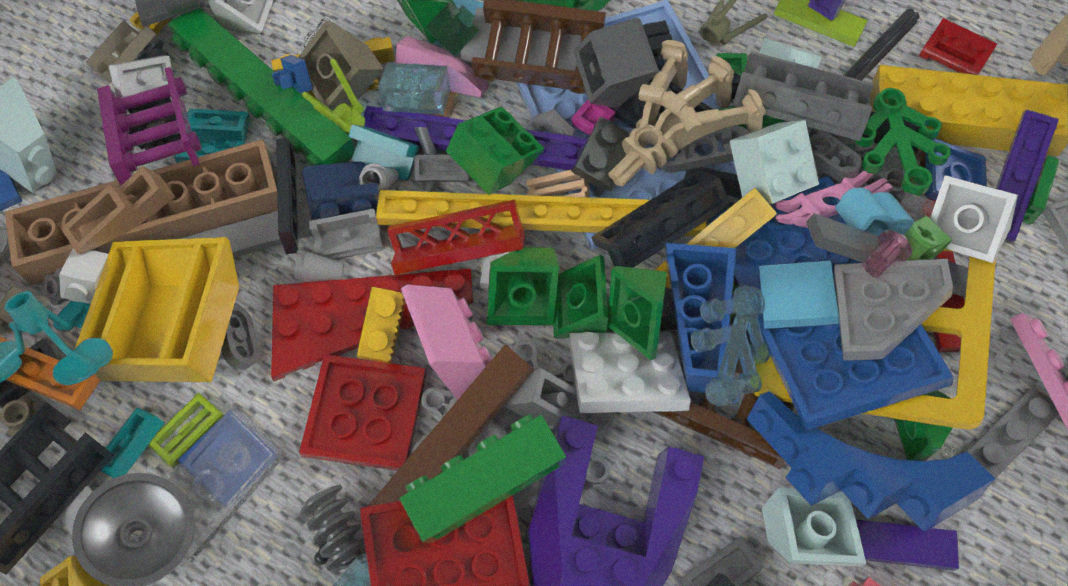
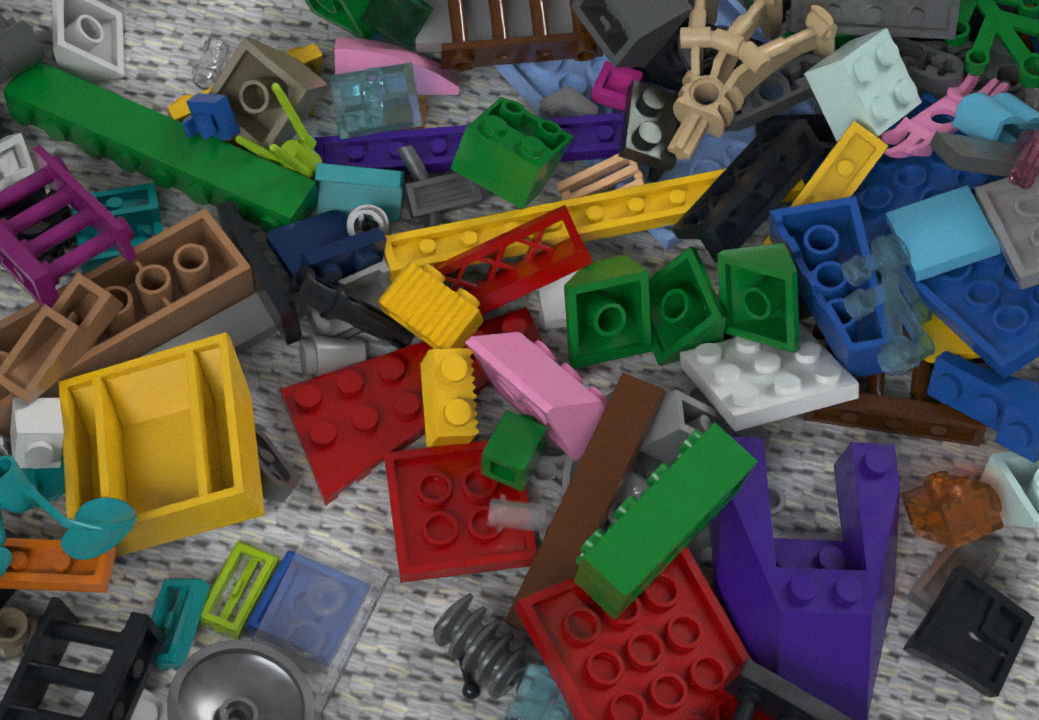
camera: 20 degrees left, 5 degrees down
(324, 231) = (334, 302): none -> black pin
(390, 255) = (430, 308): none -> yellow brick
(396, 431) = (516, 515): none -> clear pin
(412, 380) = (514, 450): none -> green brick
(735, 523) = (952, 509): none -> clear orange brick

